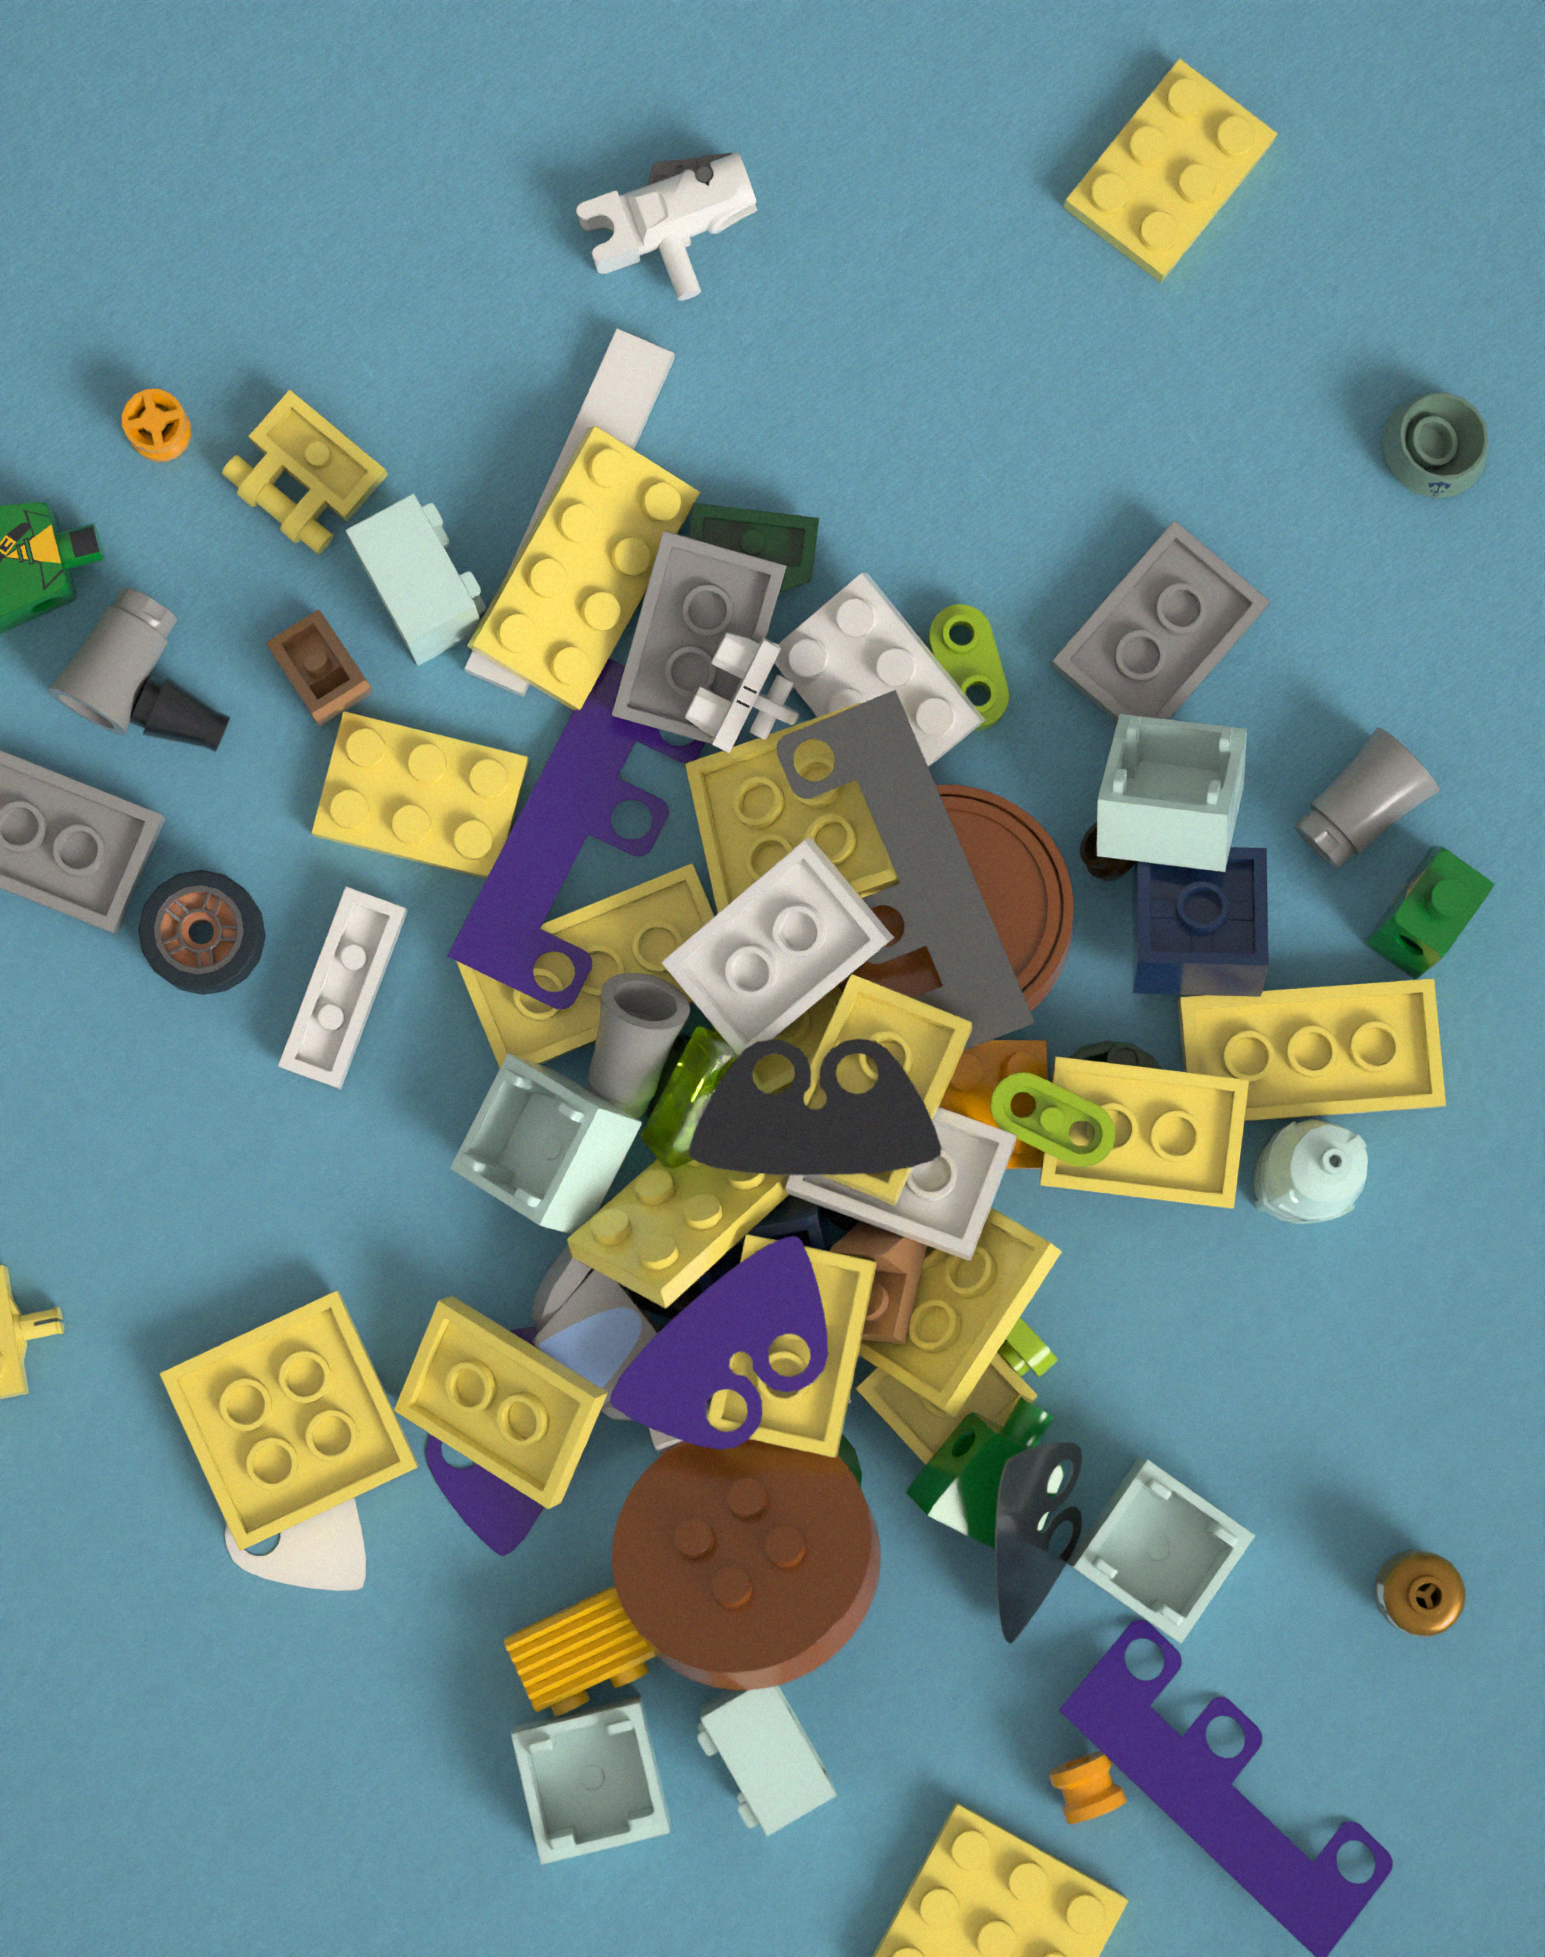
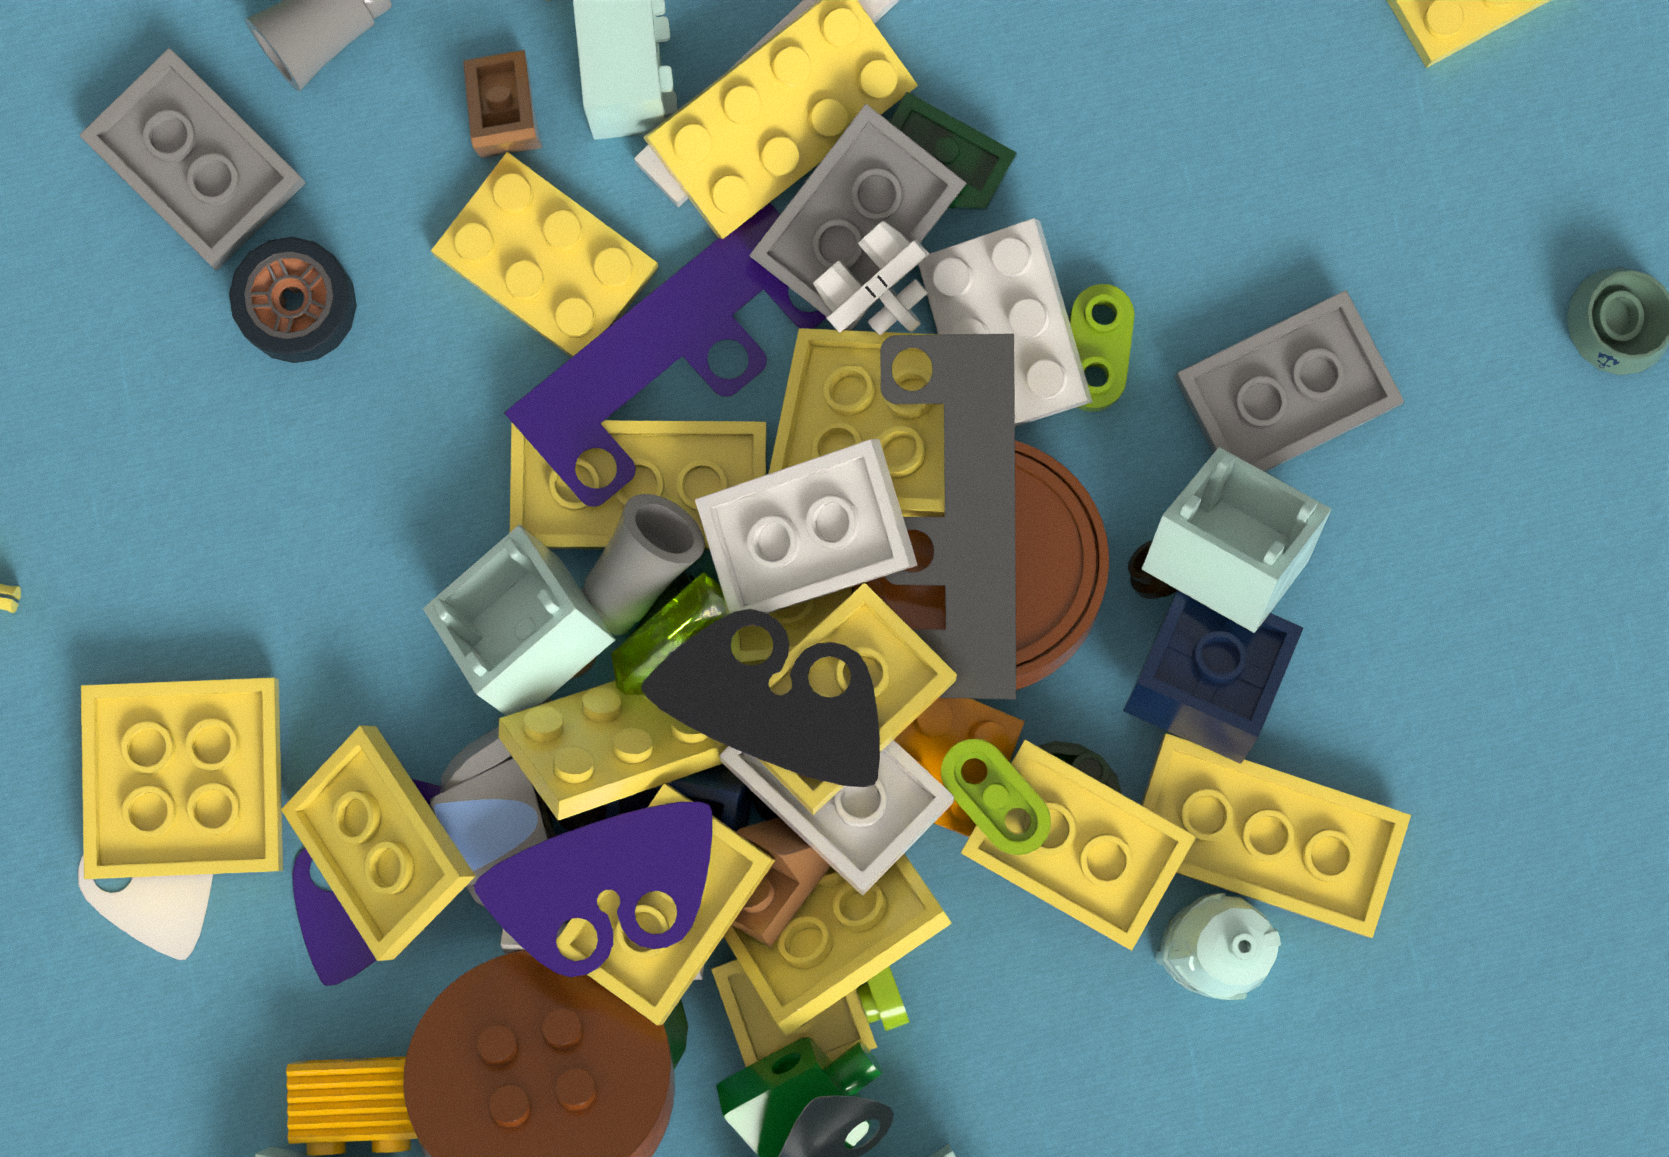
camera: 30 degrees right, 0 degrees up
(178, 715) = (355, 93): black cone -> none
(343, 988) = (399, 403): white plate -> none
(1366, 799) = (1417, 621): light grey plant -> none
(1430, 912) = (1432, 751): green torso -> none

